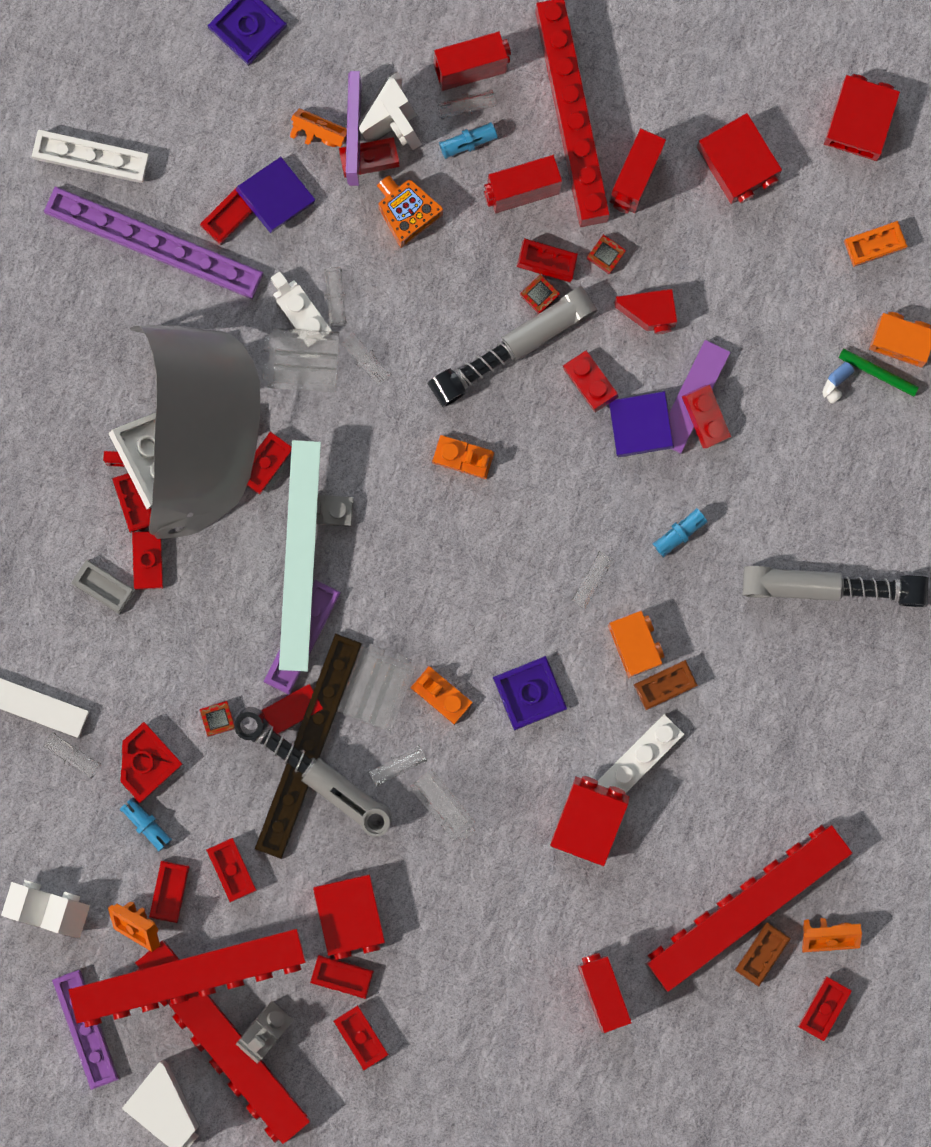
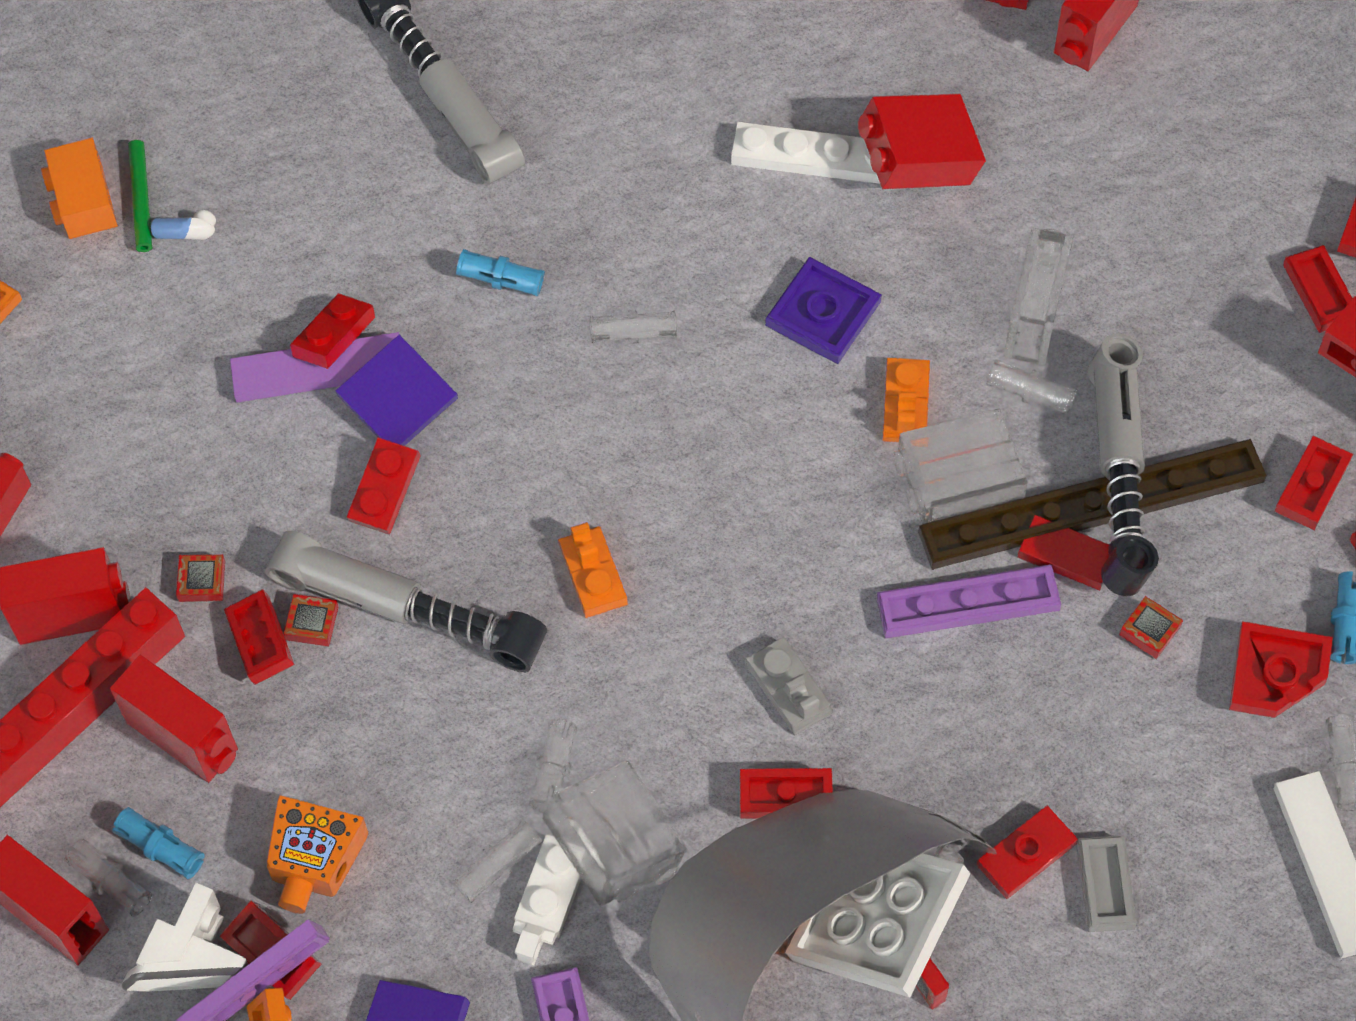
camera: 115 degrees left, 20 degrees down
(133, 508) = (970, 920): red plate -> none
(299, 555) = (870, 658): light aqua tile -> none
(349, 916) = (1248, 320): red brick -> none
(636, 644) = (673, 232): orange brick -> none
(650, 310) = (239, 475): red slope -> none
(665, 685) = (696, 175): dark orange plate -> none

